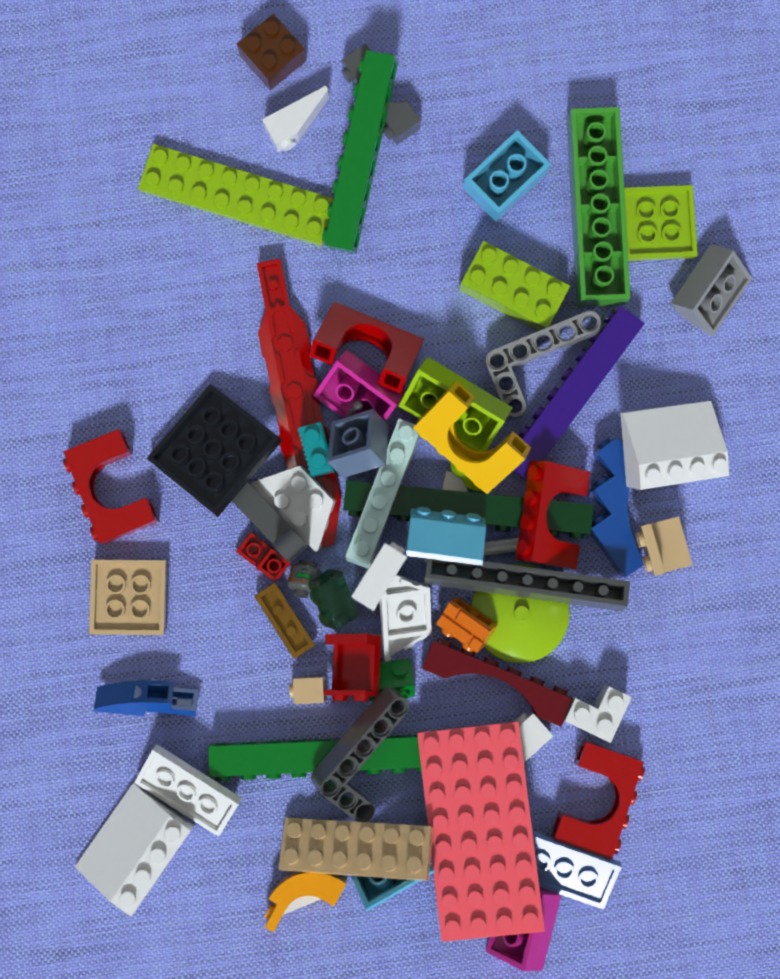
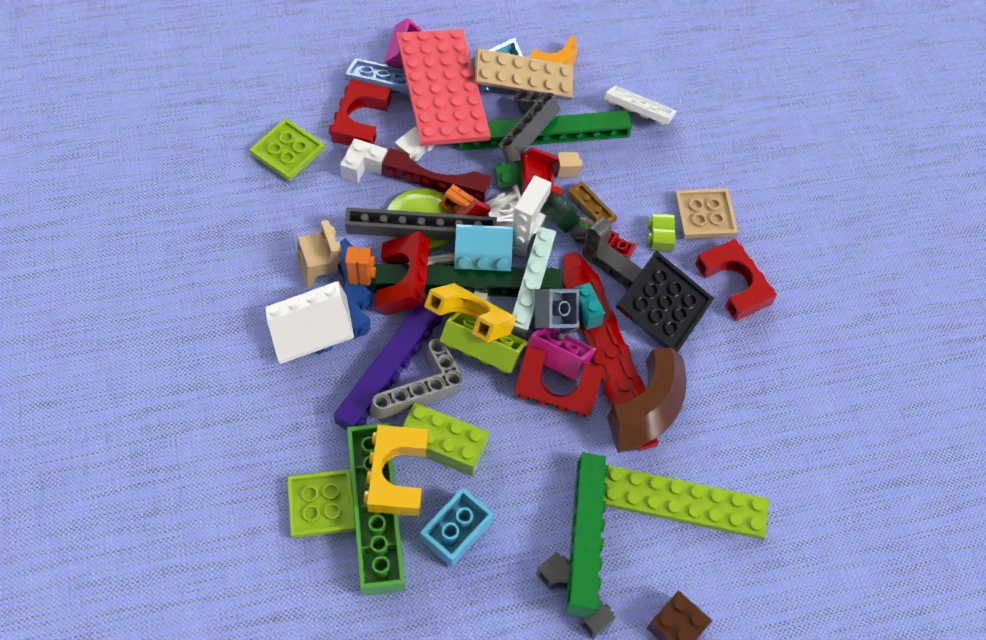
camera: 175 degrees right, 25 degrees down
(133, 848) = (668, 75): white slope -> none
(146, 695) = (679, 153): blue slope -> none
(195, 568) = (661, 232): none -> lime brick
(250, 309) = (656, 408): none -> reddish brown brick
(291, 122) = (653, 560): white slope -> none
(299, 502) = (587, 269): white wing -> none
(458, 593) = (476, 208): none -> red slope
(593, 202) = (388, 443): none -> yellow arch
(612, 513) = (360, 265): none -> orange brick
(701, 742) = (287, 149): none -> lime plate
(712, 289) = (275, 451): light grey slope -> none

